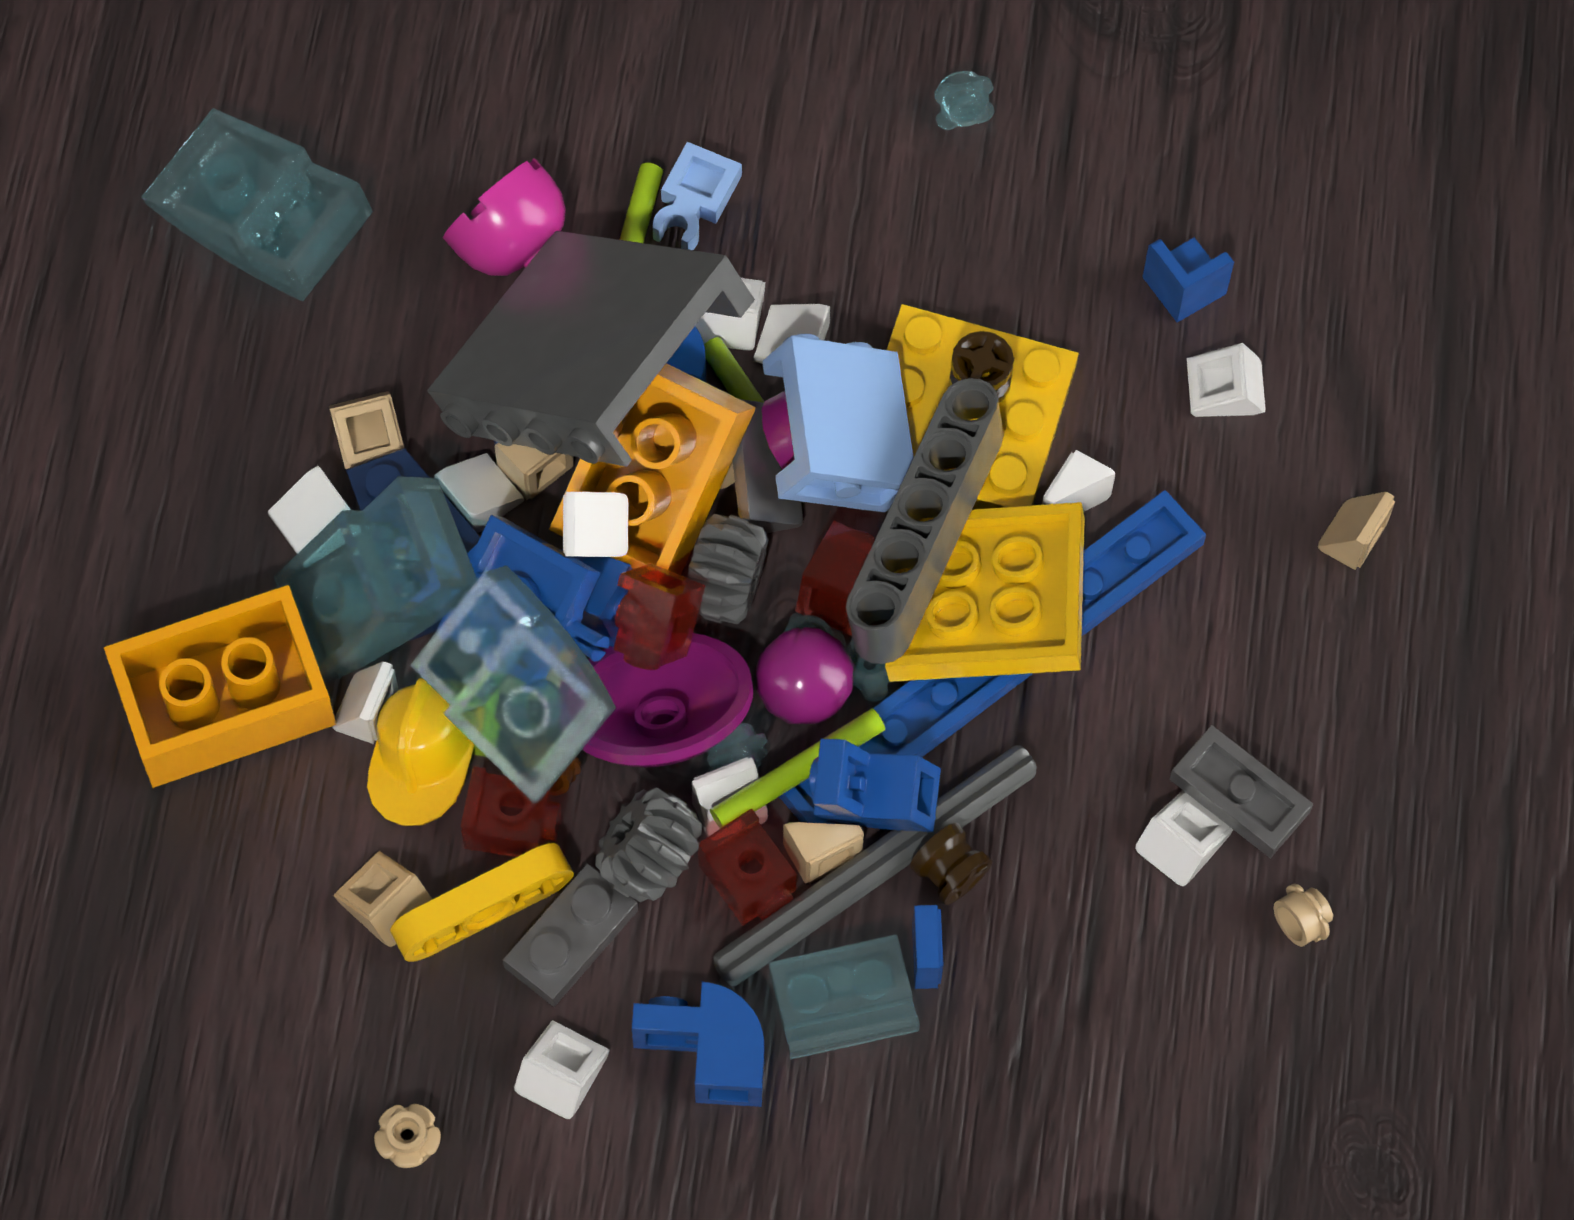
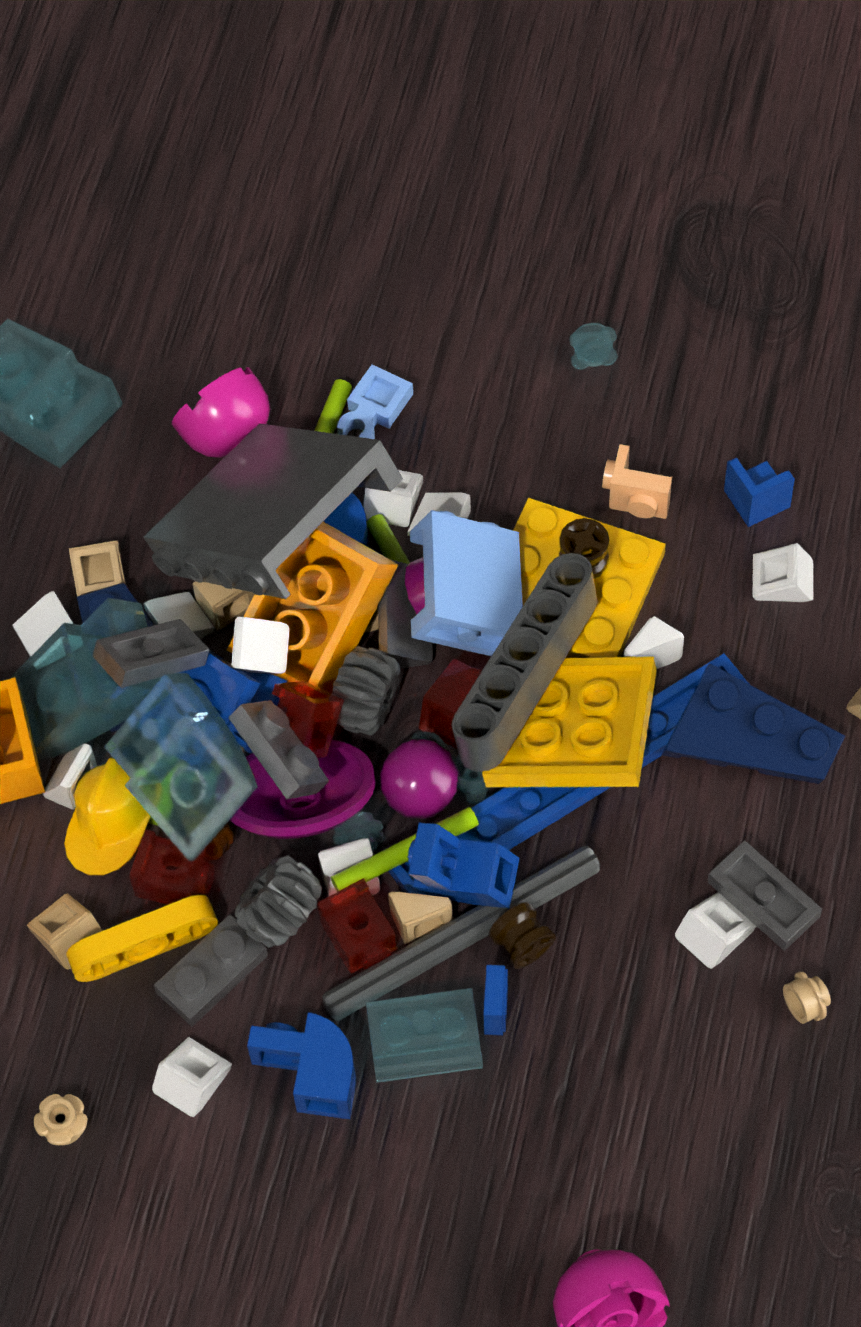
camera: 10 degrees right, 5 degrees down
(462, 545) = (150, 652): none -> flat silver plate
(634, 656) = (279, 749): none -> flat silver plate
(1035, 288) = (636, 491): none -> light nougat bracket
(1203, 584) = (751, 730): none -> dark blue wing

